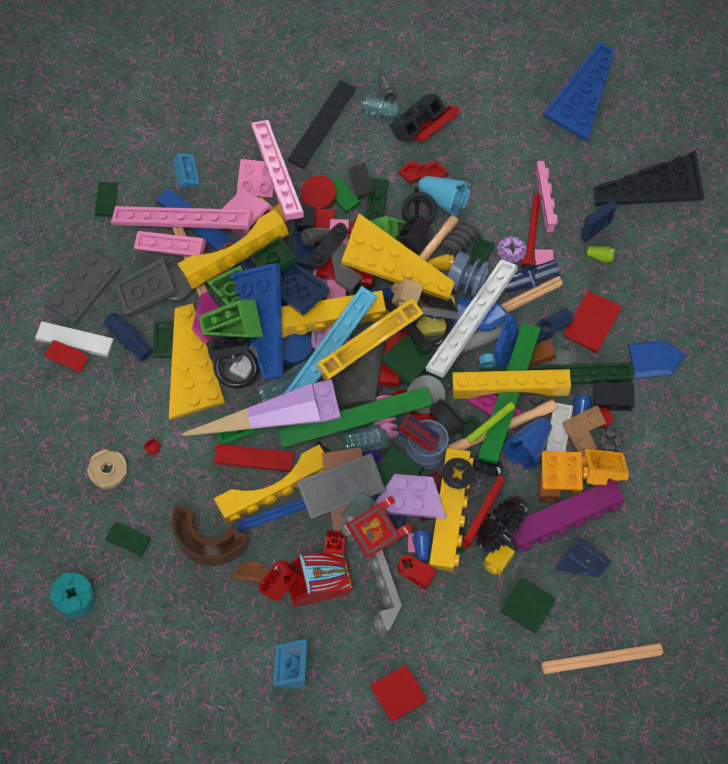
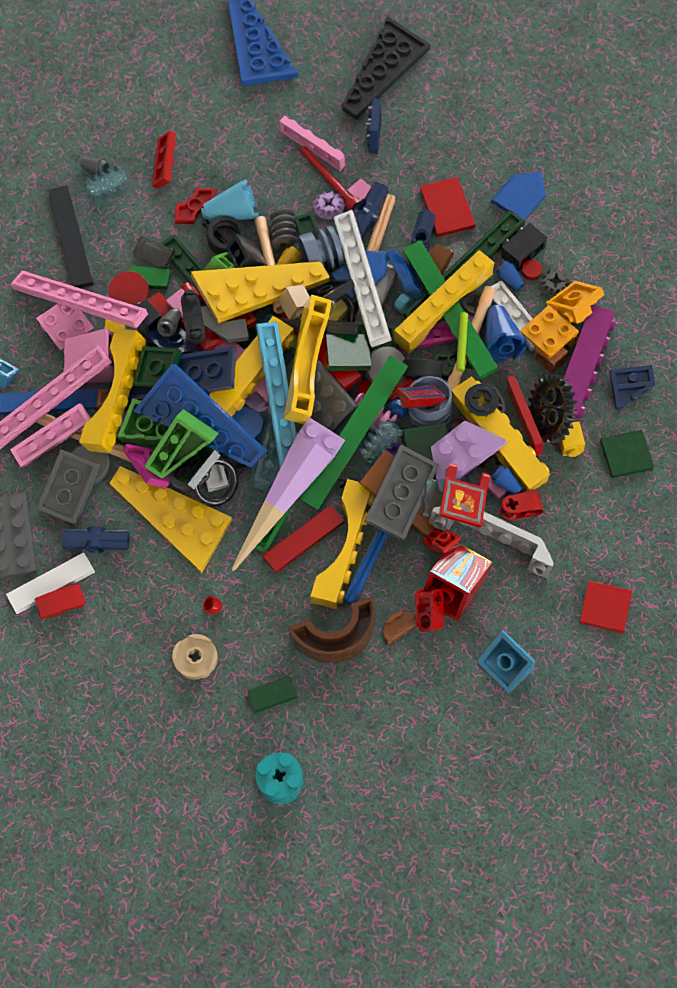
camera: 40 degrees left, 0 degrees up
(163, 339) = (126, 516): dark green tile -> none
(408, 123) = (144, 178): black arch -> none
(487, 468) = (493, 379): black gear -> none
(579, 427) = (524, 289): medium nougat plate -> none
(602, 253) = (400, 150): lime cone -> none

